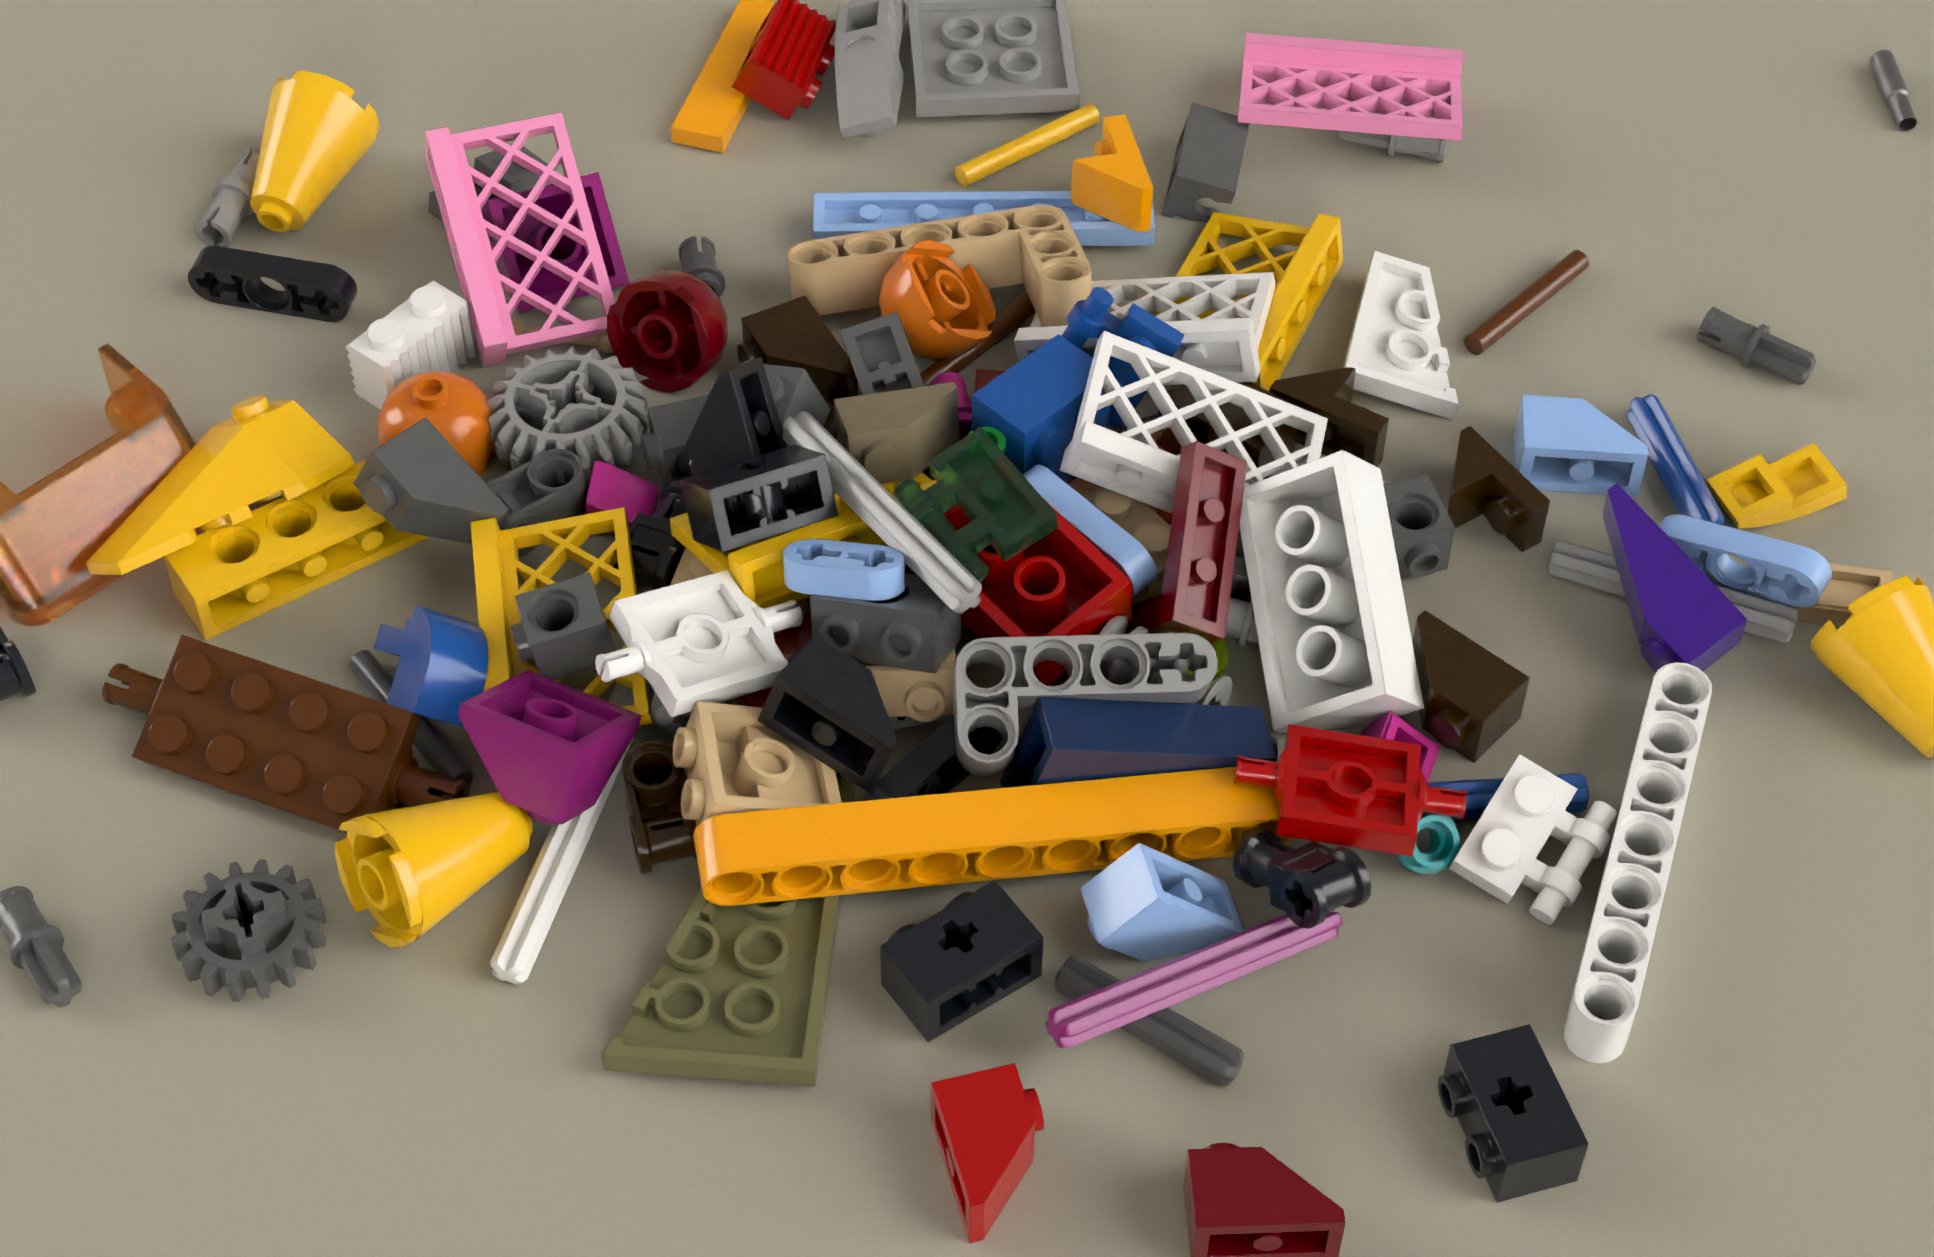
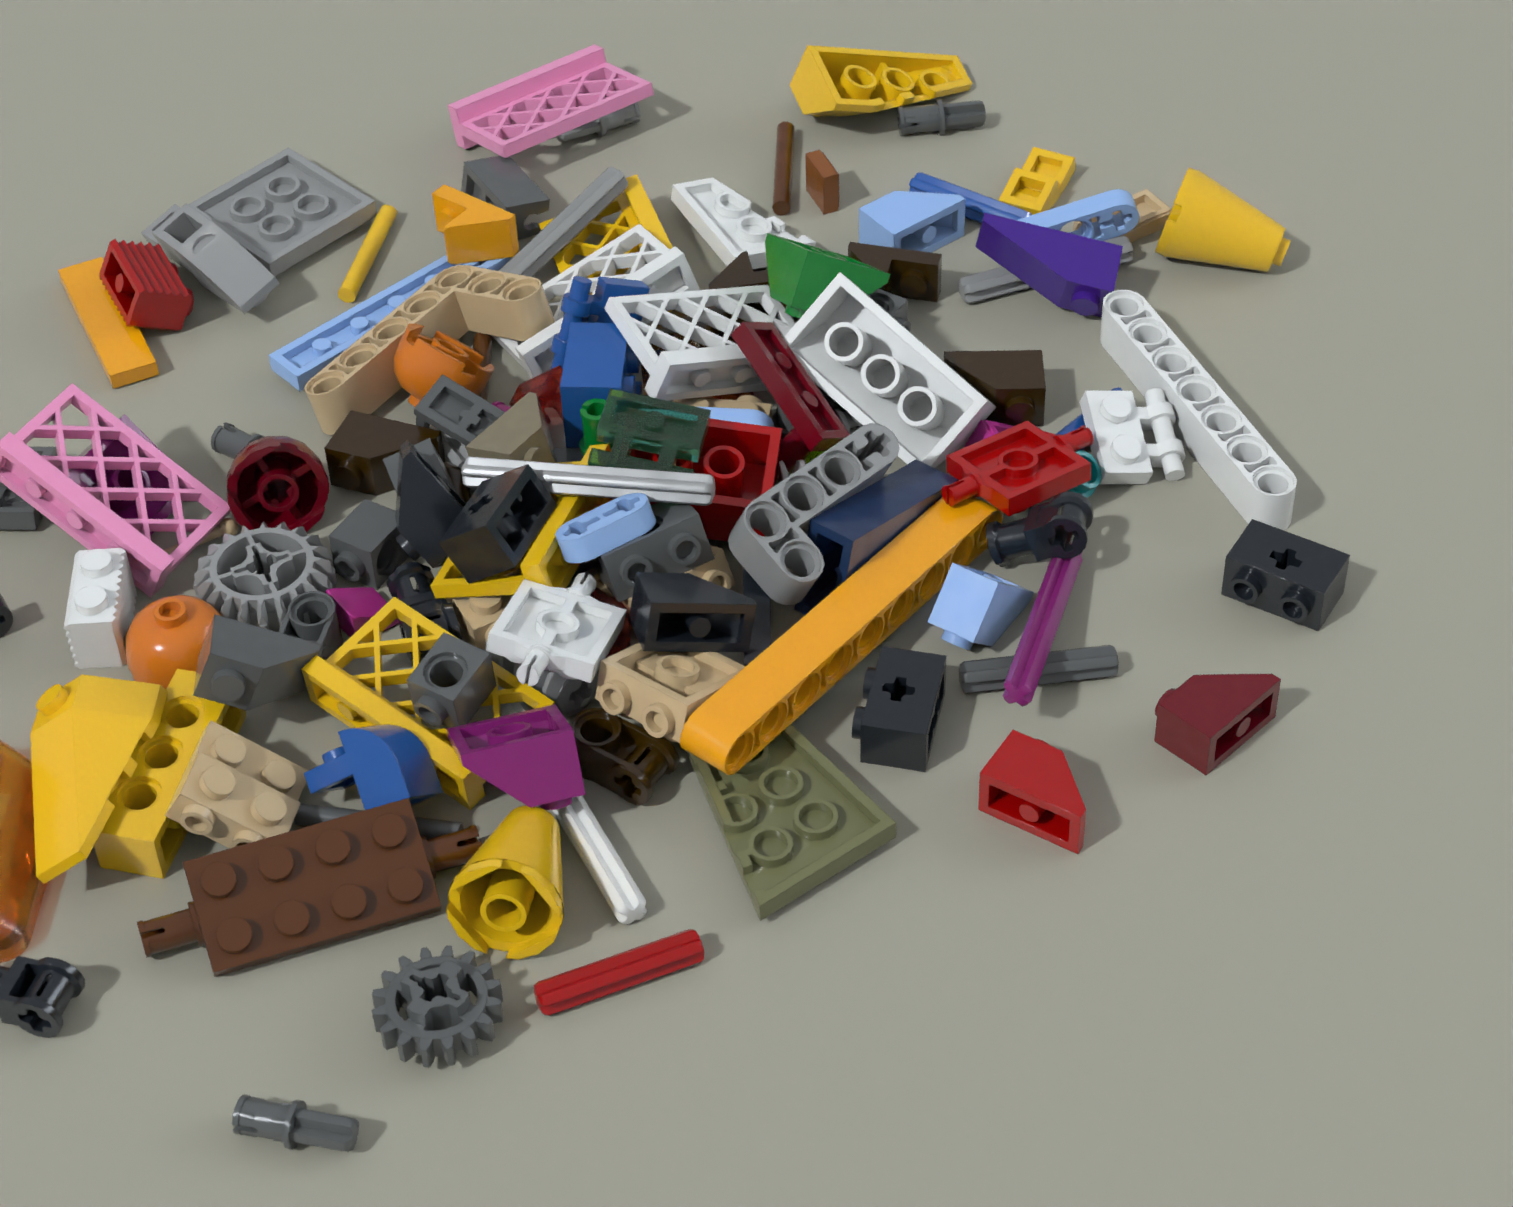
camera: 40 degrees left, 5 degrees down
(312, 601) = (236, 790): none -> tan plate
(432, 1020) = (618, 972): none -> red axle
(1204, 233) = (567, 224): none -> light grey axle
(1389, 432) = (803, 272): none -> green slope
(1538, 341) = (822, 181): none -> dark orange tile
(1720, 263) = (868, 80): none -> yellow wedge

